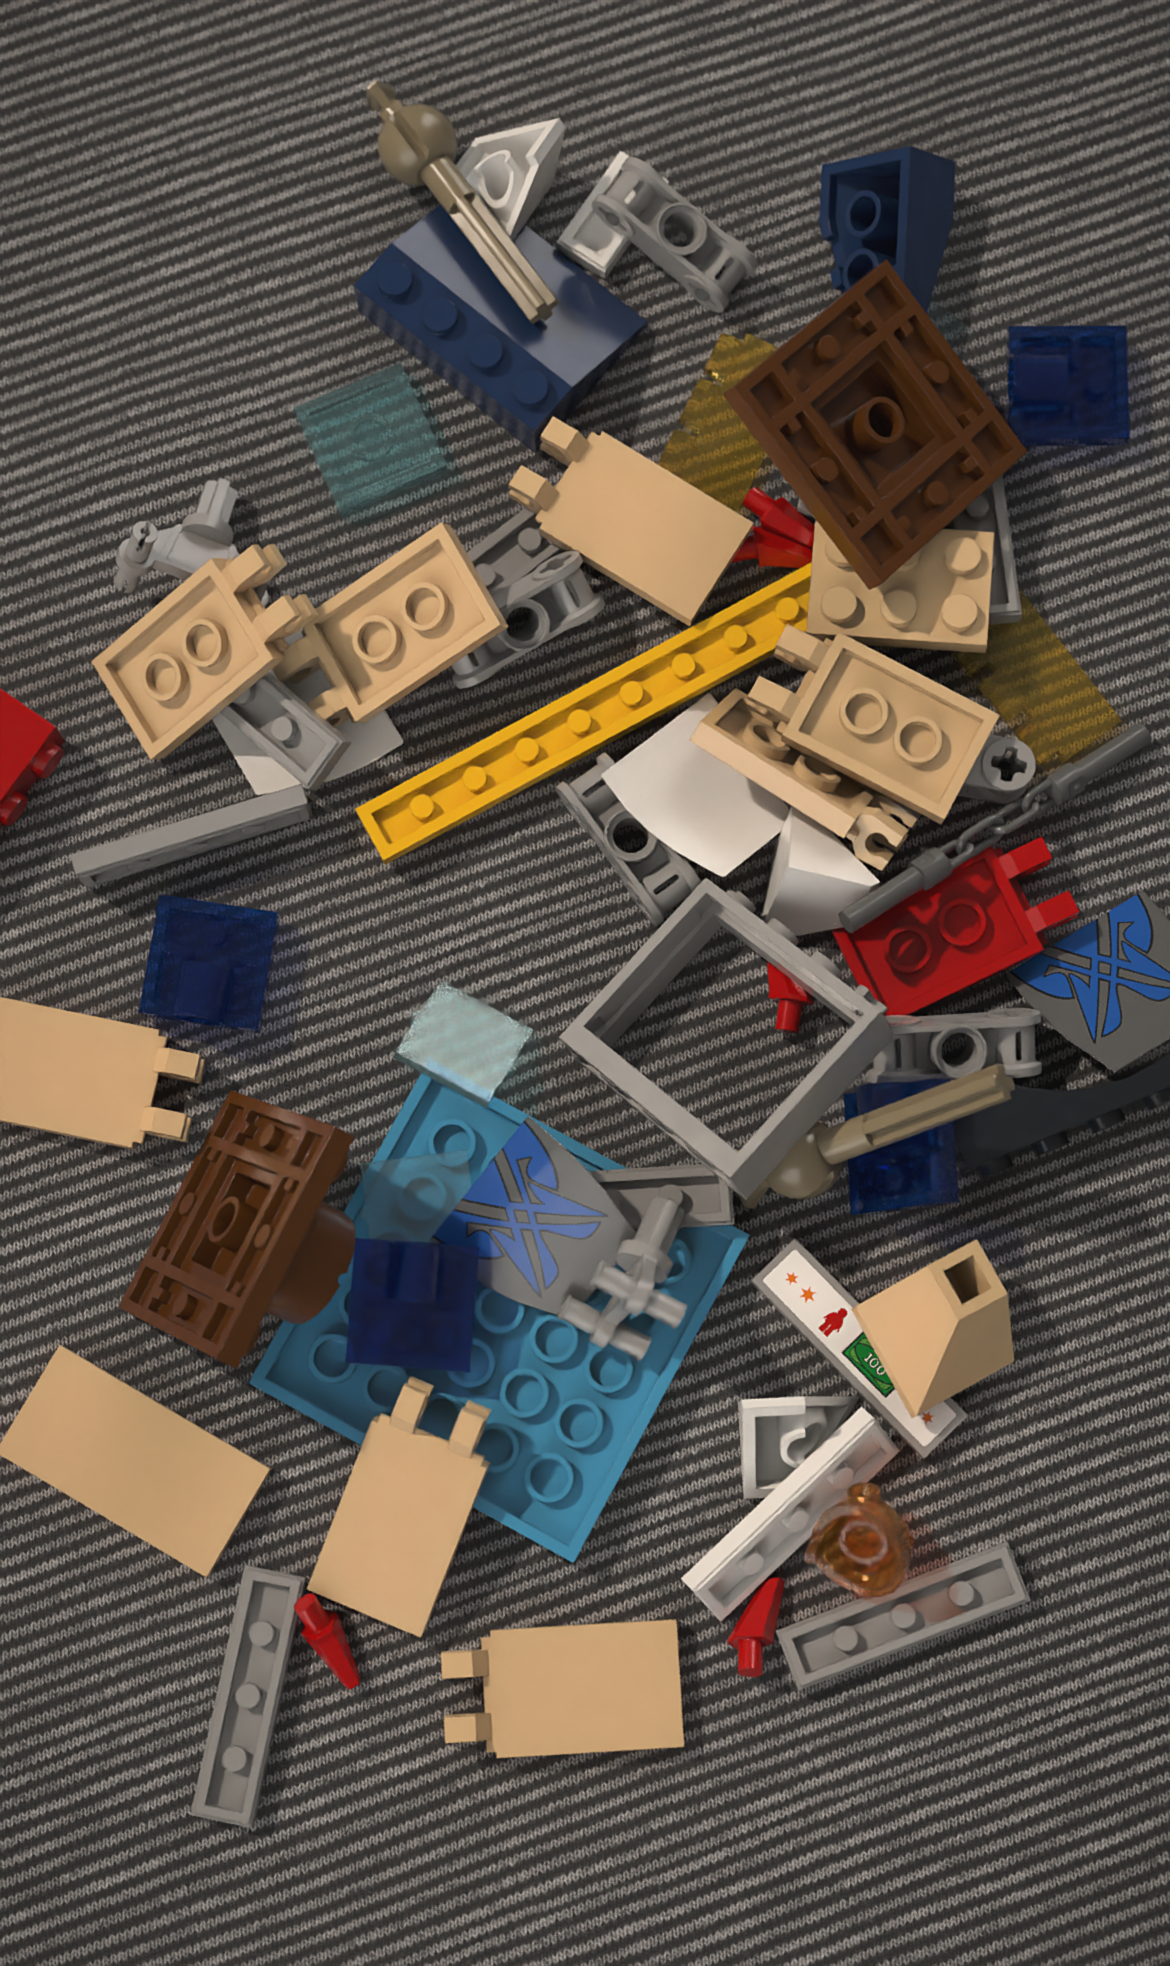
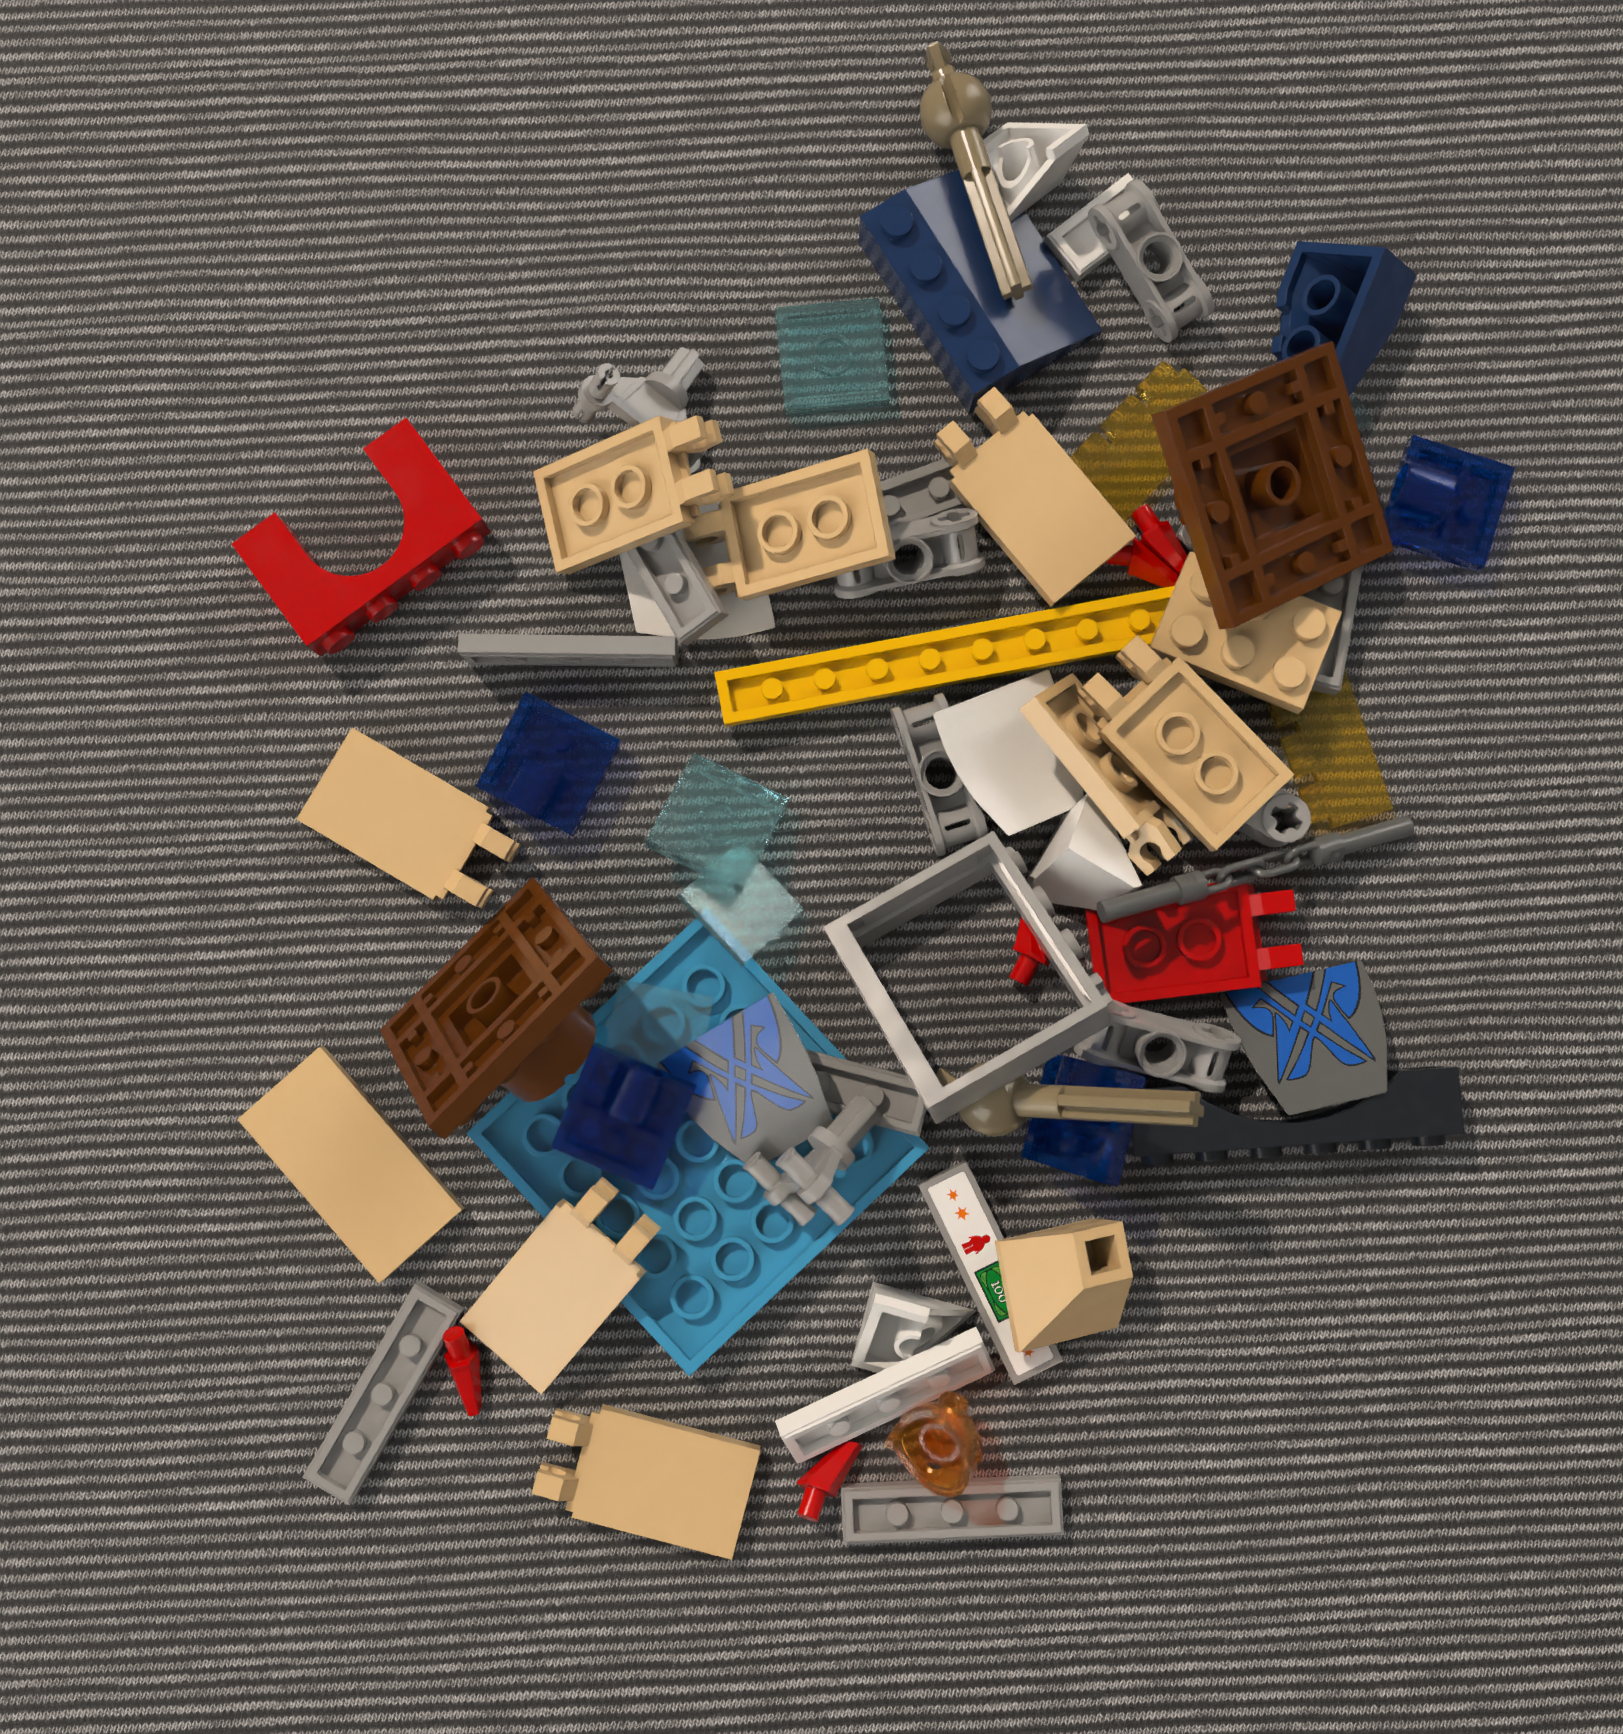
camera: 15 degrees right, 5 degrees up
(410, 966) = (717, 822): none -> clear light blue tile

